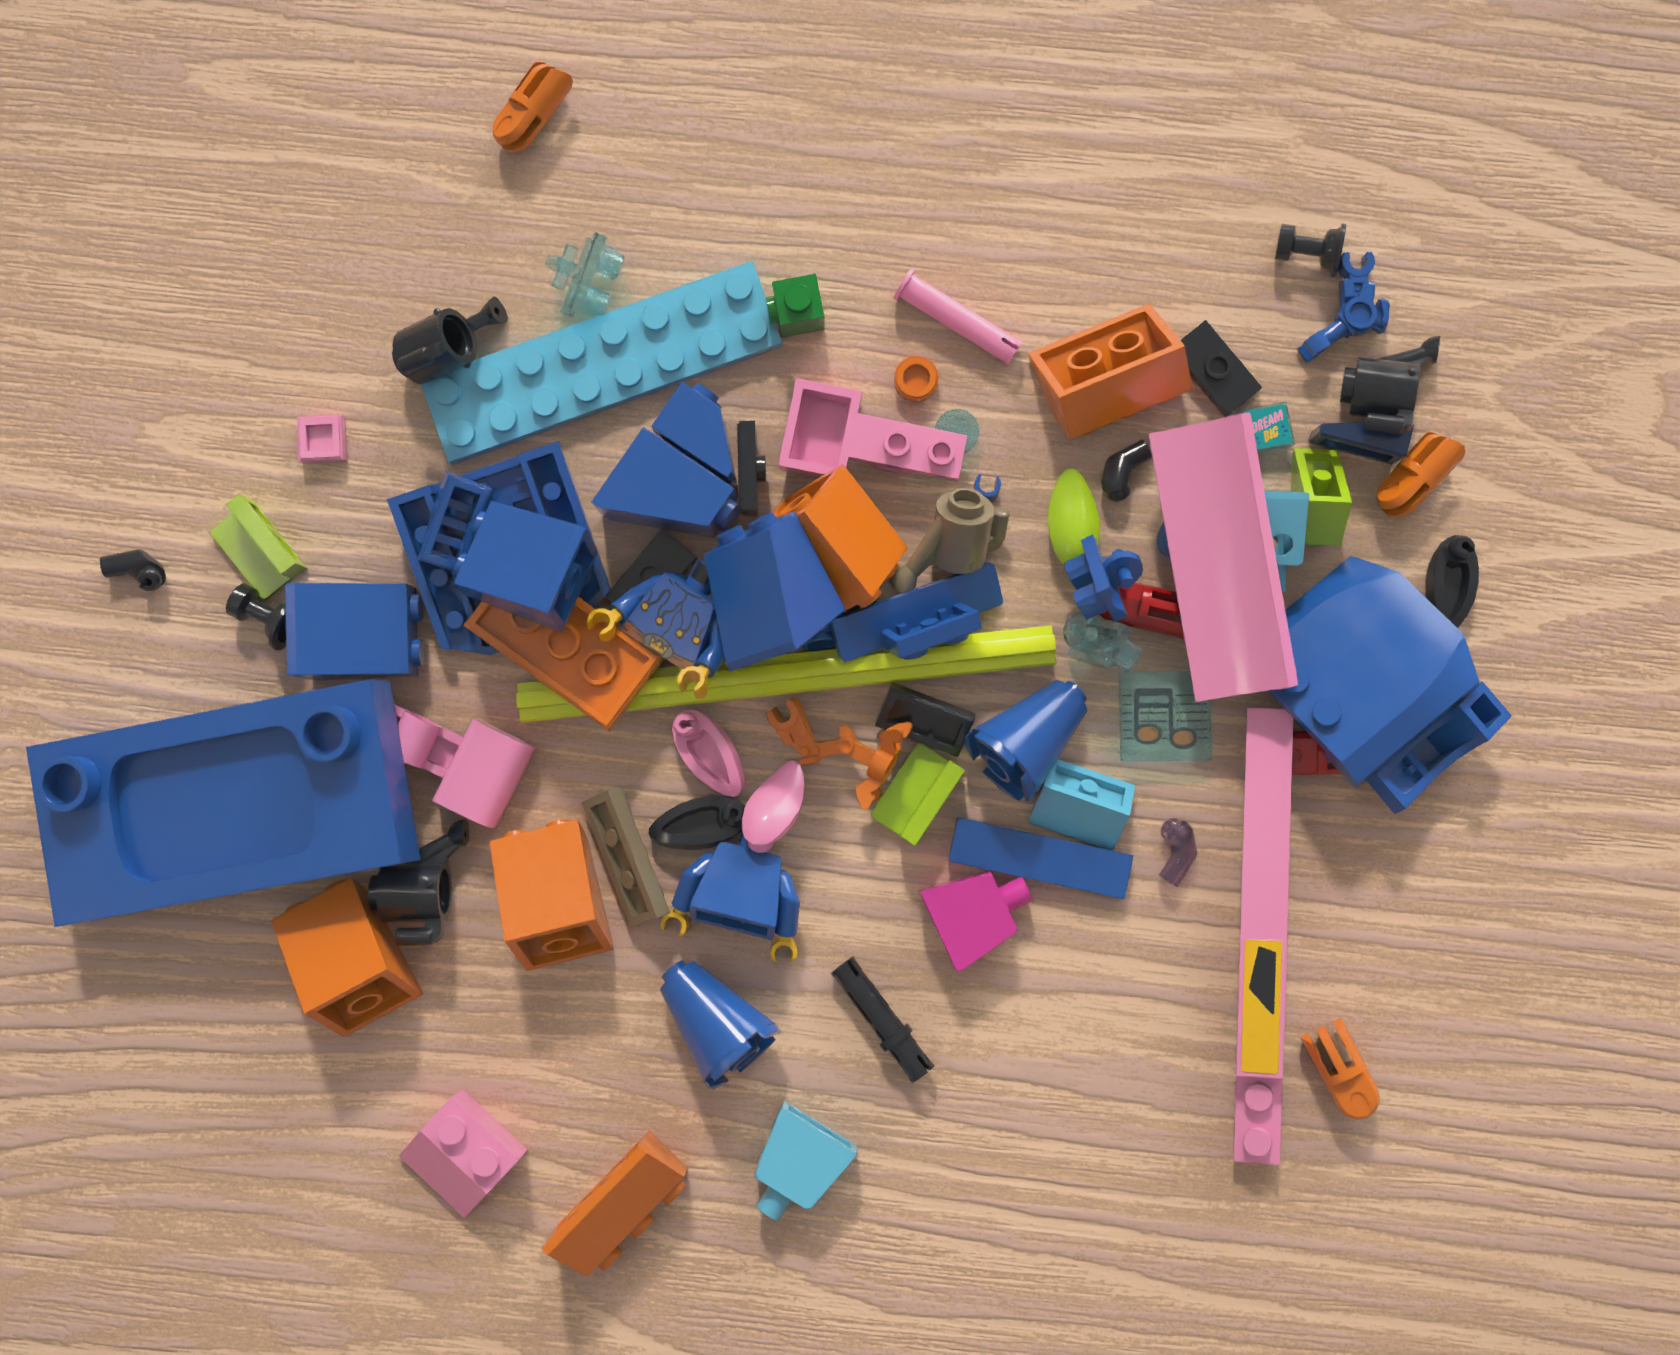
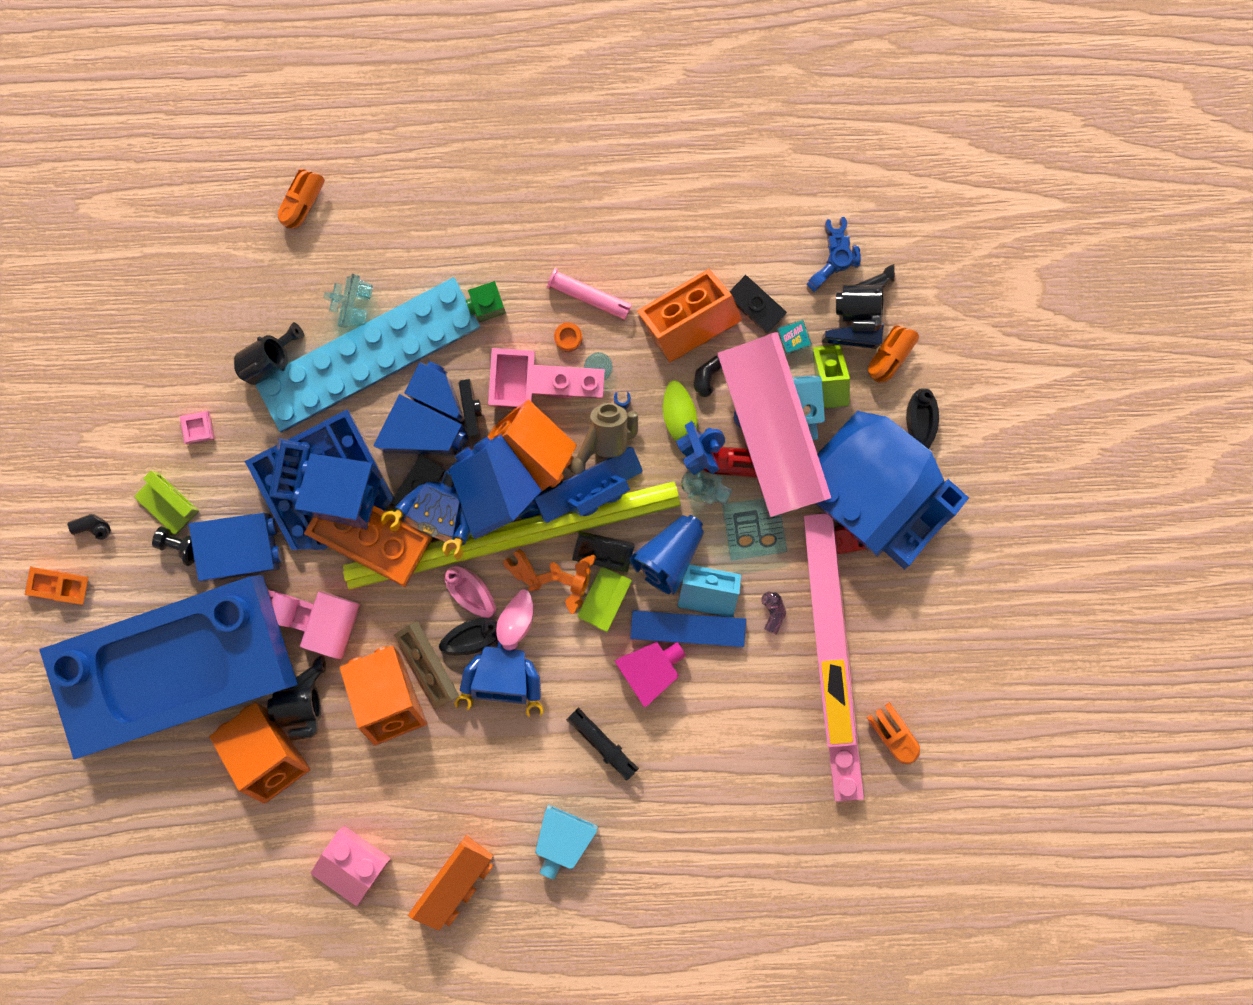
camera: 10 degrees left, 0 degrees up
(69, 652) = (56, 585): none -> orange slope
(715, 1022) = (497, 760): blue cone -> none
(1328, 248) = (816, 218): black piece -> none

